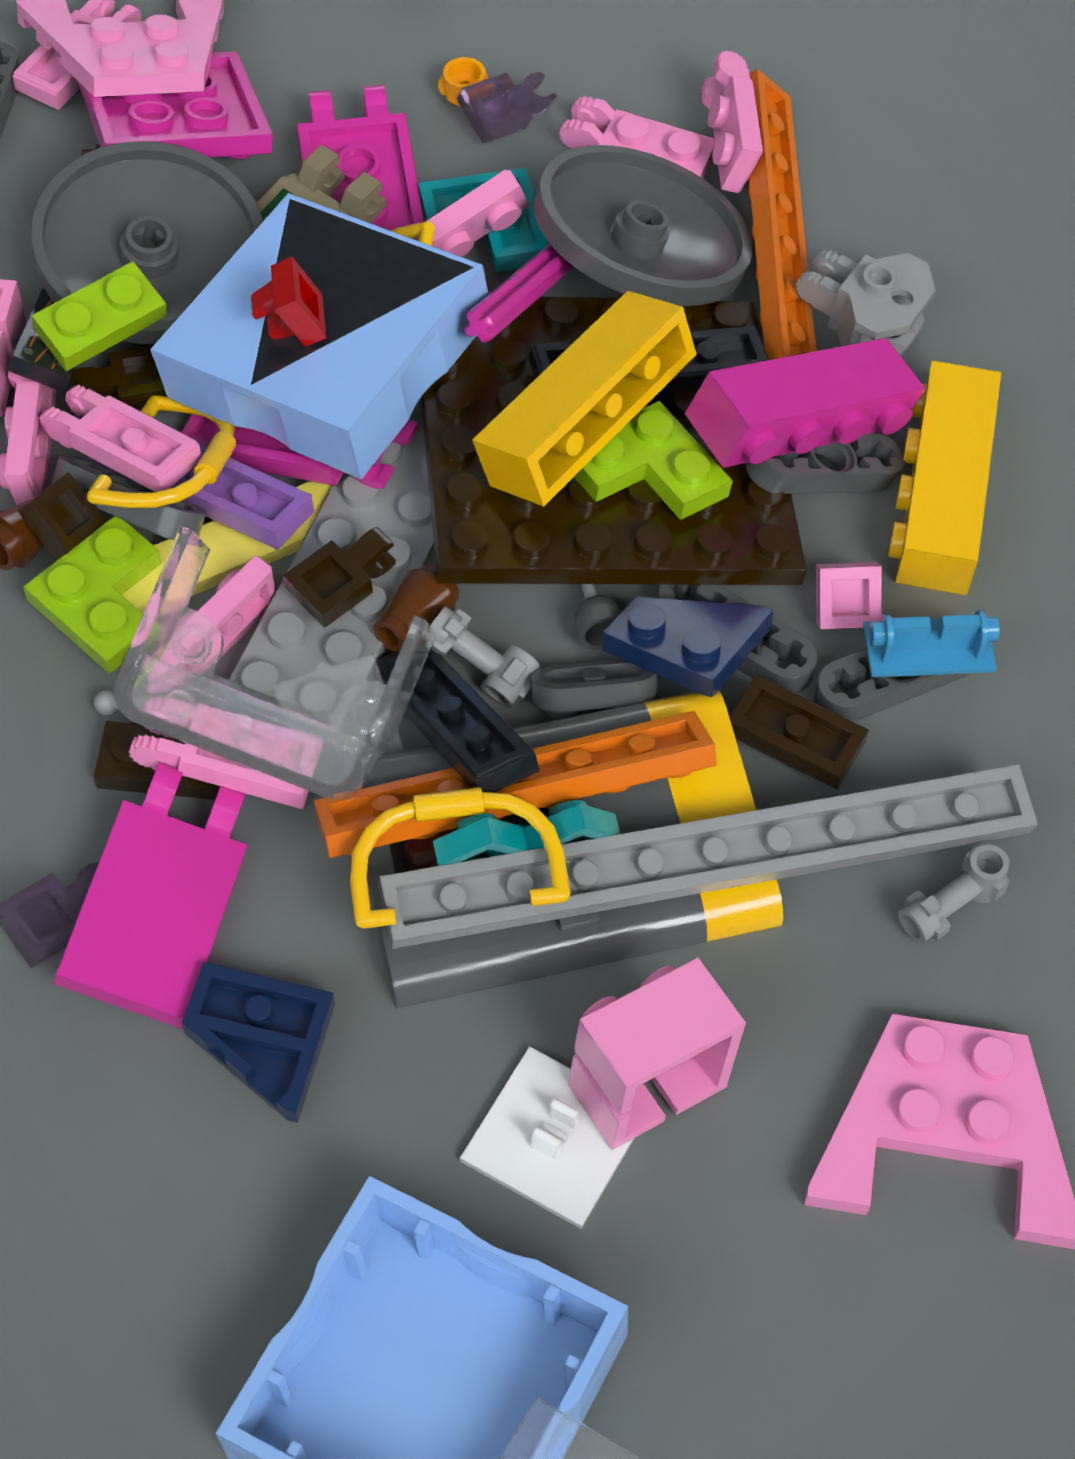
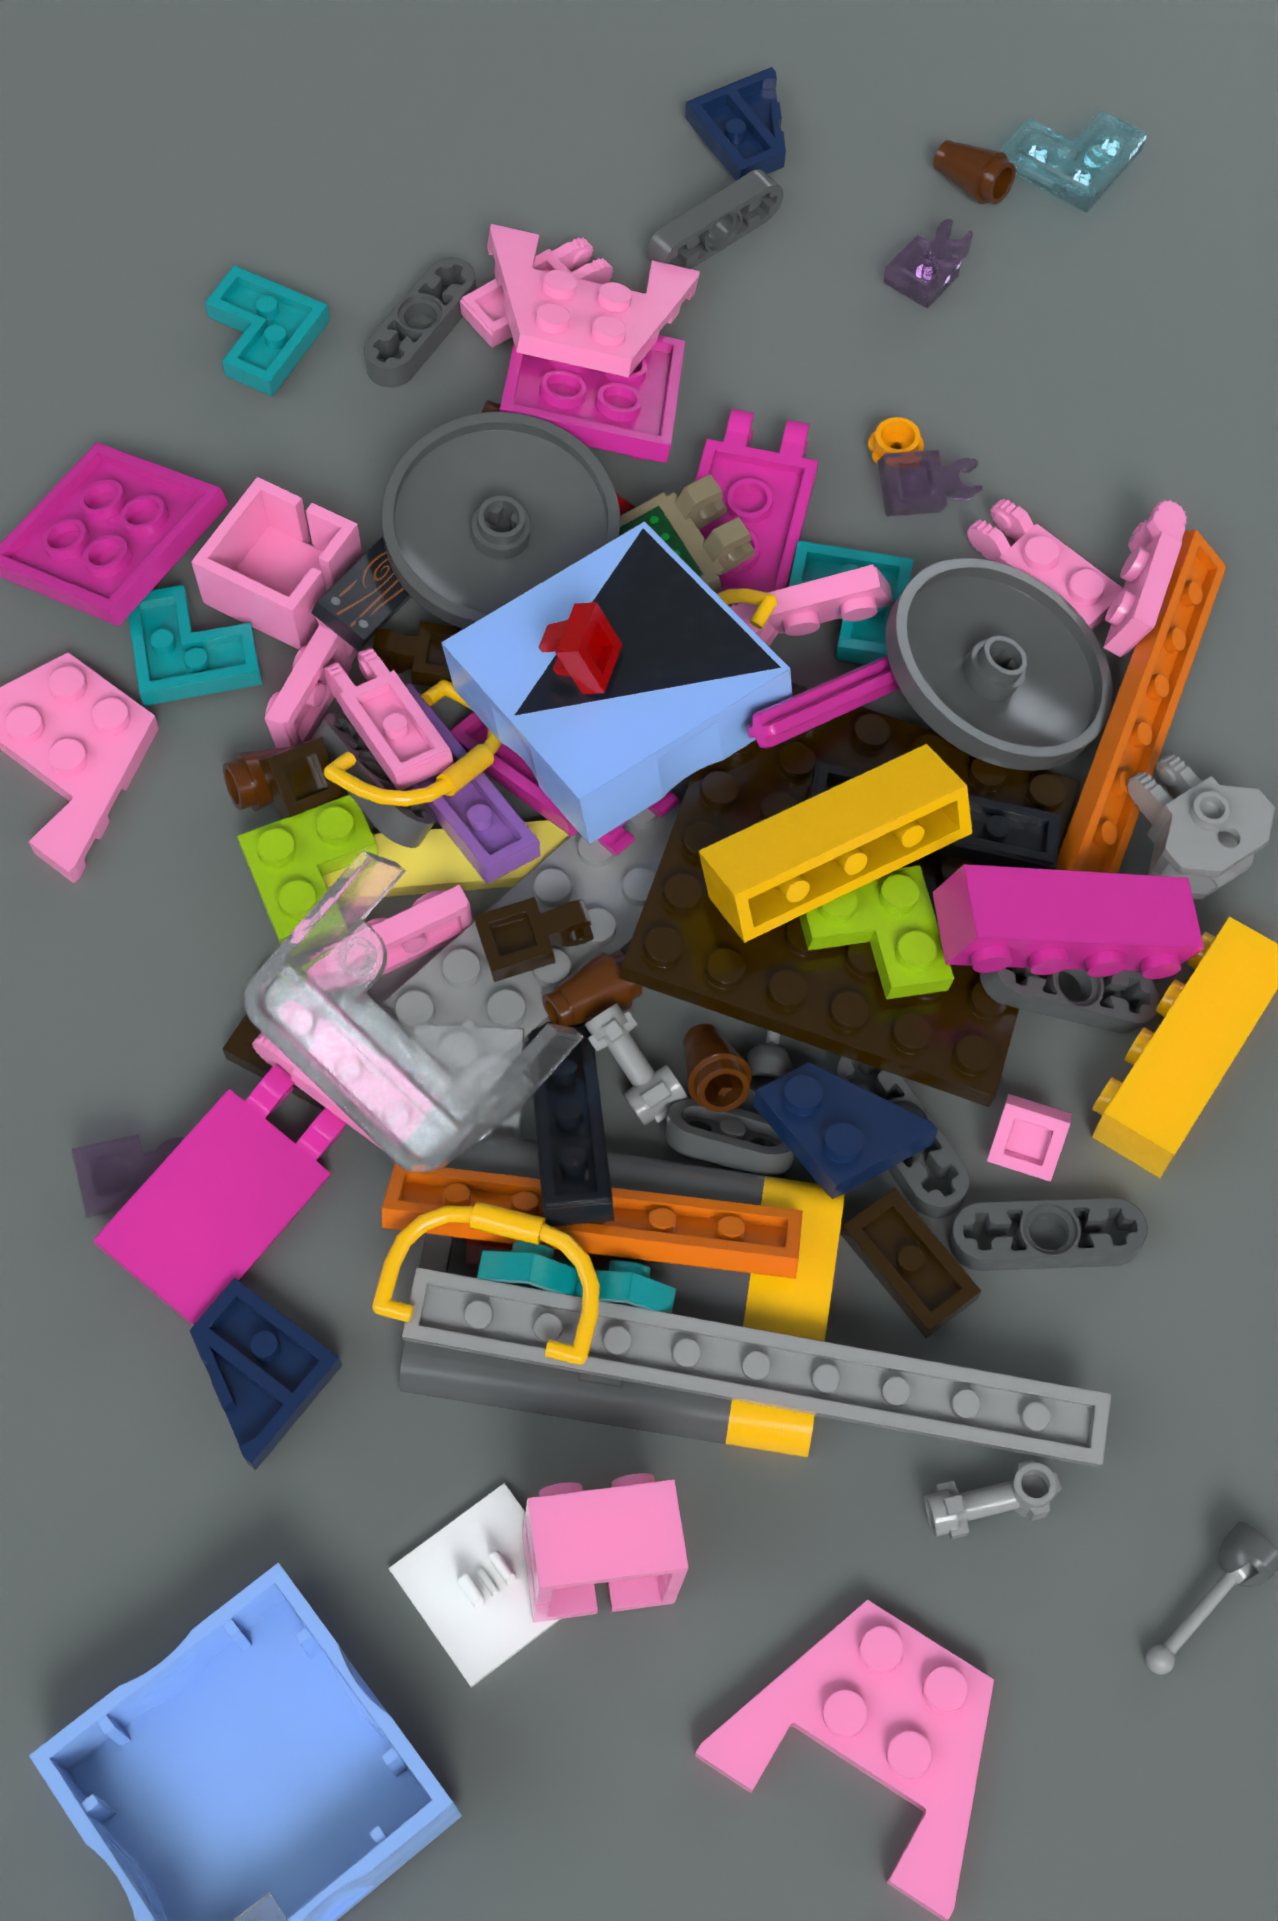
camera: 25 degrees right, 5 degrees up
(99, 316) = (415, 587): lime plate -> none
(556, 632) = (715, 1070): none -> reddish brown cone
(931, 645) = (1084, 1227): dark azure hinge -> none

